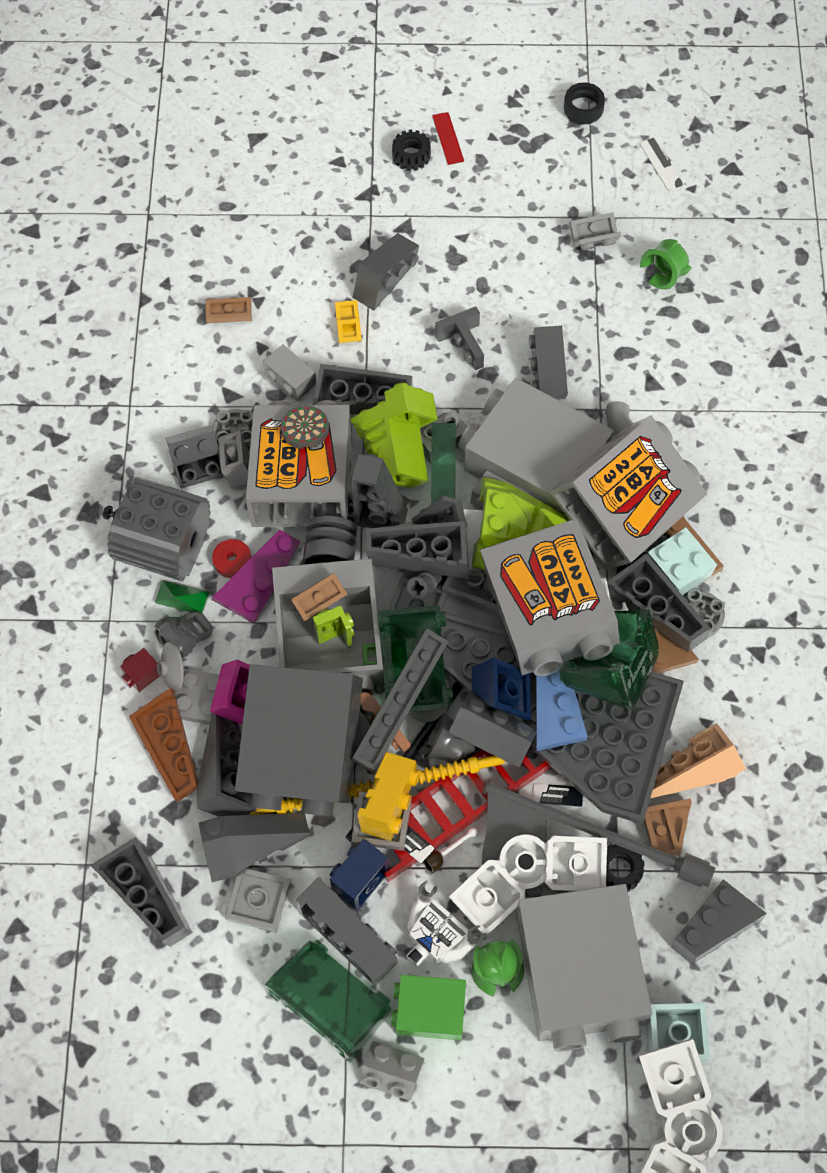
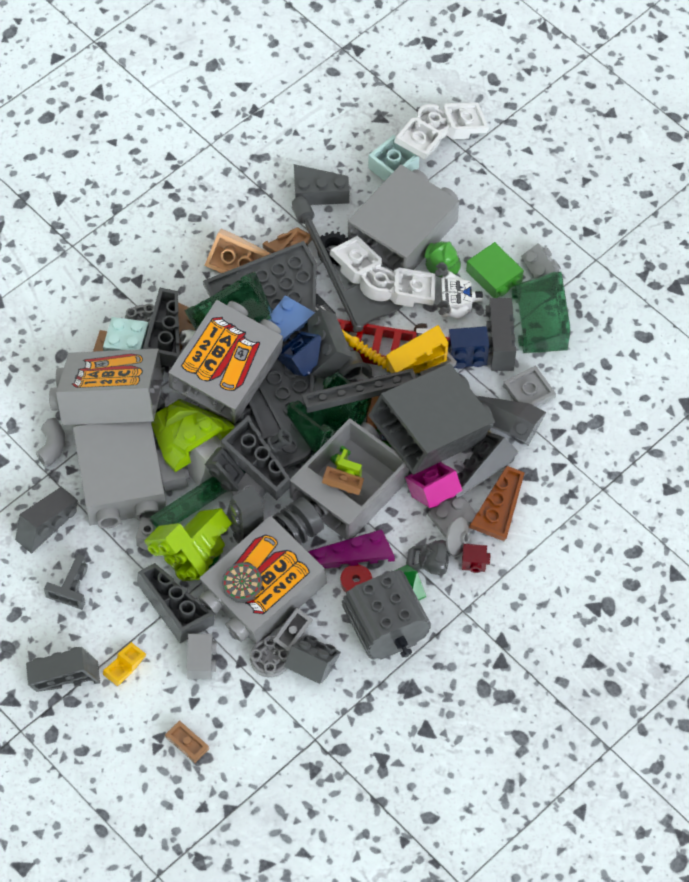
camera: 135 degrees left, 5 degrees down
(141, 886) = (585, 448): dark grey wedge -> none

